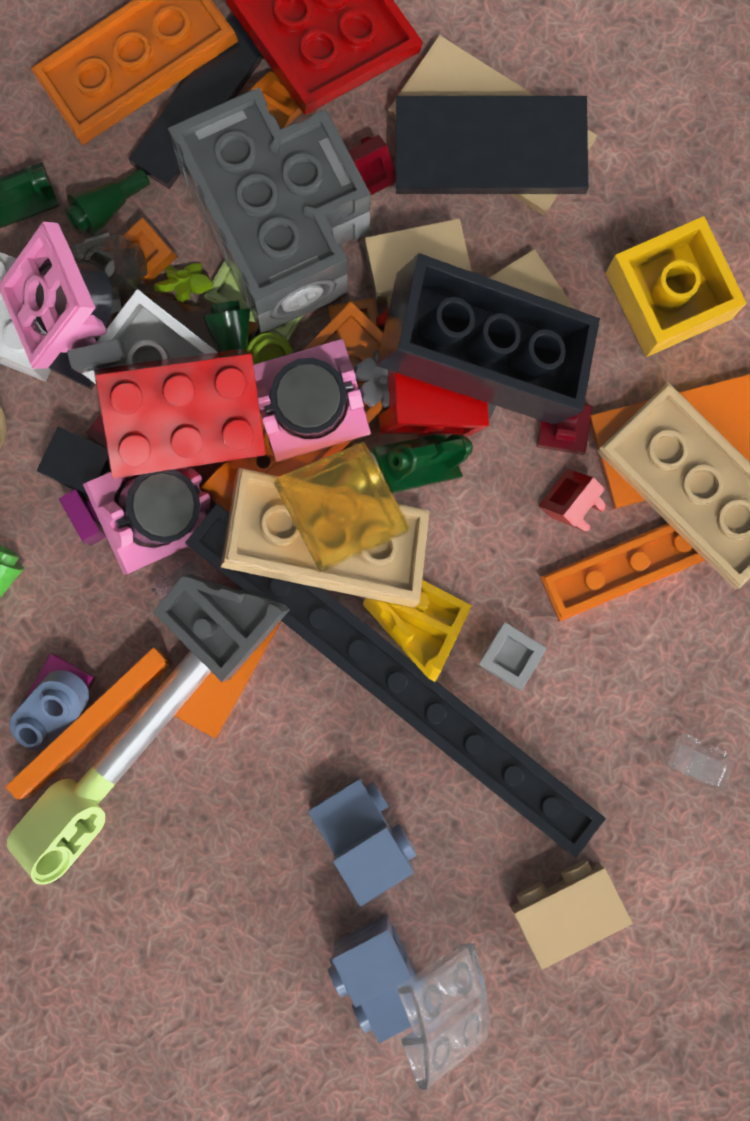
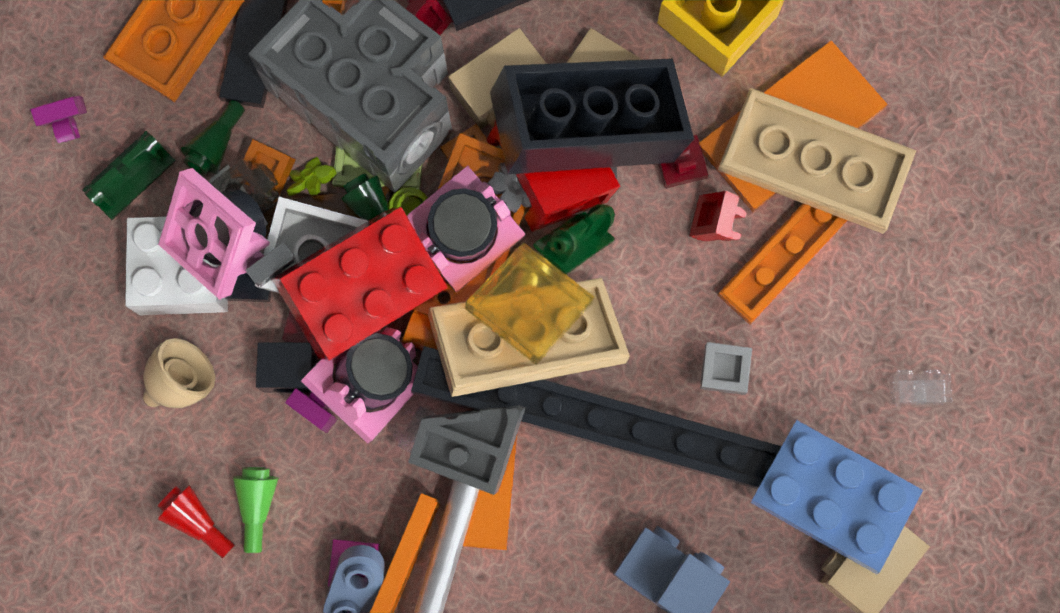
camera: 20 degrees left, 5 degrees down
(426, 630) = (643, 379): yellow wing -> none
(562, 834) = (837, 497): none -> medium blue plate

